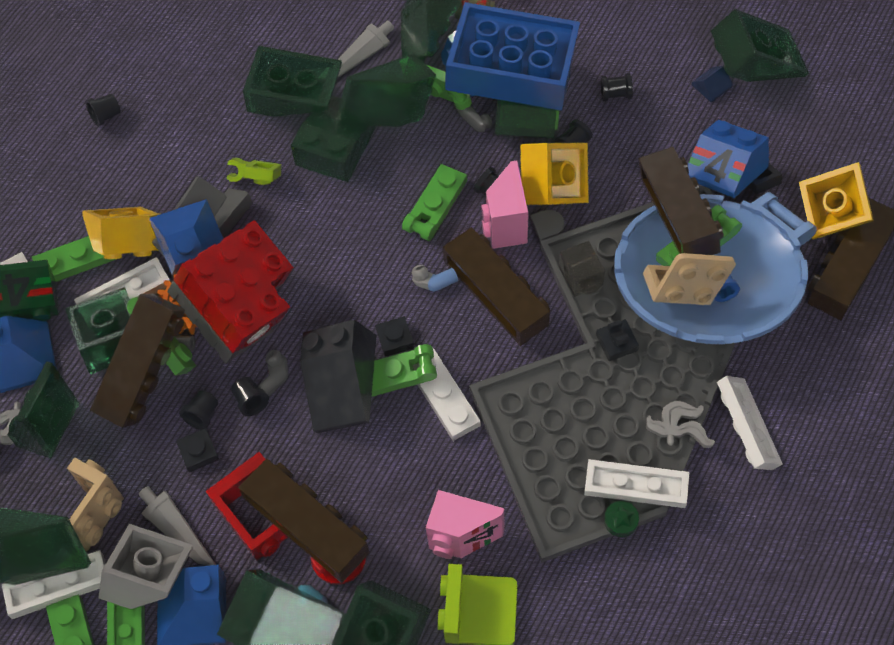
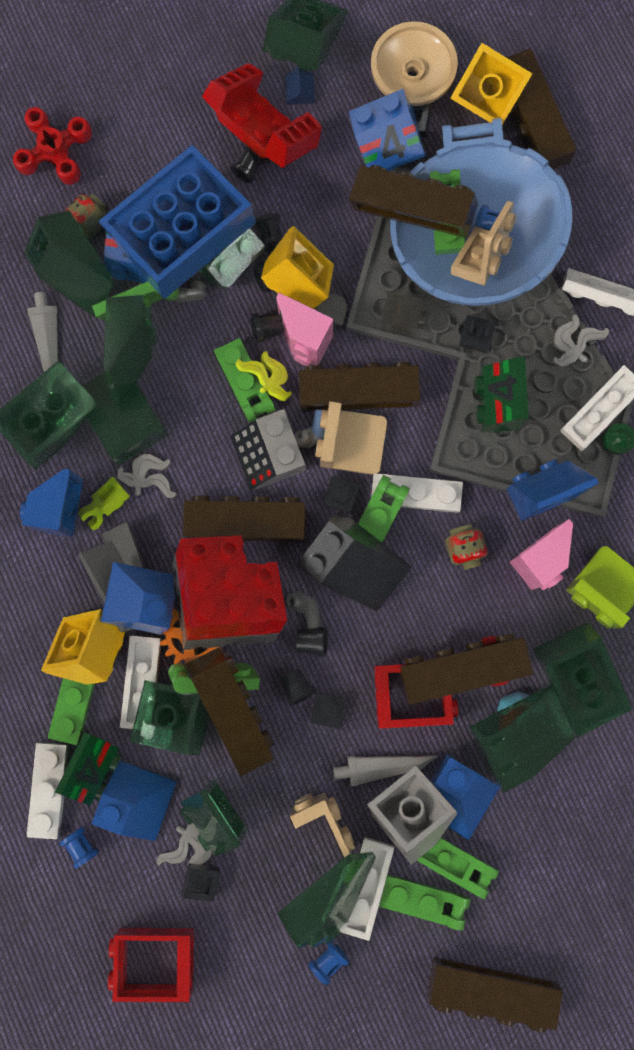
camera: 55 degrees left, 20 degrees up
(225, 133) = (54, 504): none -> blue slope
(295, 185) = (140, 468): none -> light grey piece
(315, 275) = (252, 519): none -> dark brown brick
(390, 256) = (268, 450): none -> light grey slope
(424, 461) = (466, 546): none -> olive head
(445, 307) = (351, 440): none -> tan bracket
(448, 222) = (271, 384): none -> neon yellow piece
(517, 480) = (548, 488): none -> blue slope
(575, 390) = (502, 396): none -> dark green slope
(654, 66) = (257, 121): none -> red plate
(809, 129) = (415, 49): none -> tan dish

